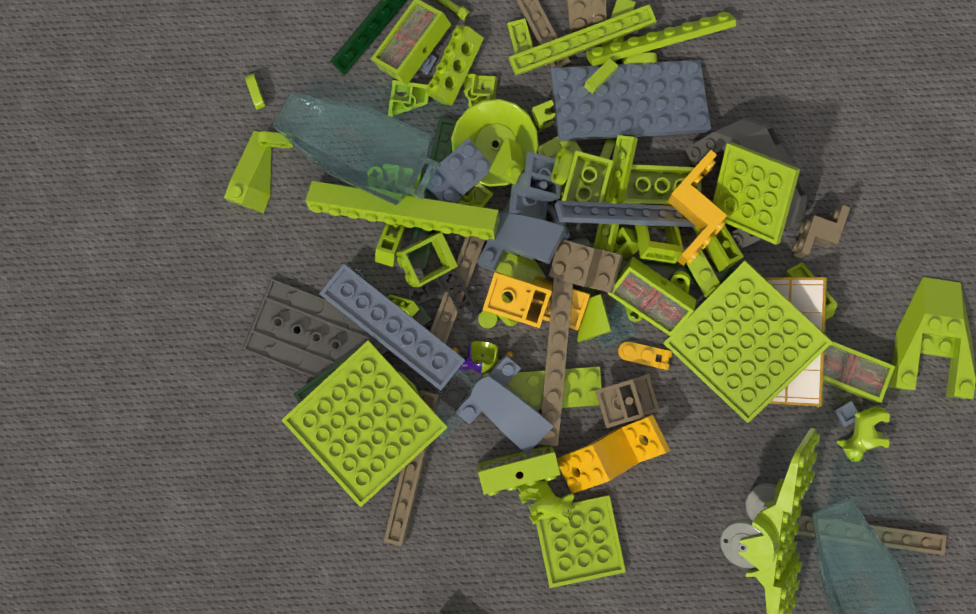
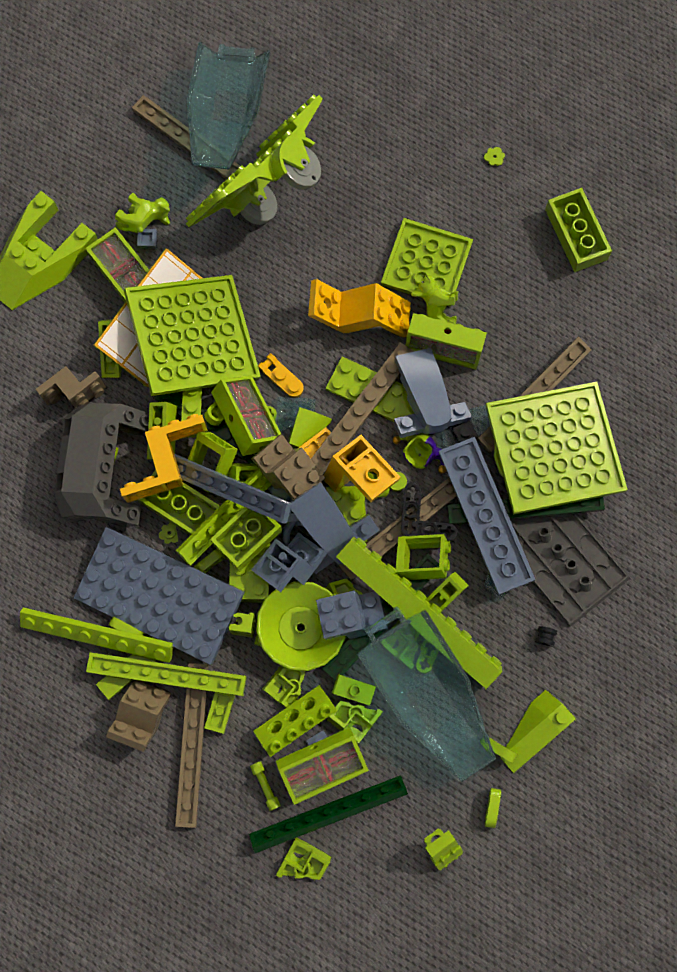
camera: 150 degrees left, 10 degrees down
(275, 32) = (443, 849): none -> lime piece
(286, 256) = (546, 636): none -> black wheel
(404, 304) = (465, 530): lime piece -> none
(423, 118) = (353, 689): none -> lime plate
(508, 162) = (301, 595): lime slope -> none
(562, 166) = (256, 562): lime beam -> none
(601, 76) = (171, 627): lime piece -> none
(627, 400) = (320, 345): dark tan bracket -> none
(653, 156) = (173, 537): none -> lime plant
(755, 192) = (108, 439): lime plate -> none

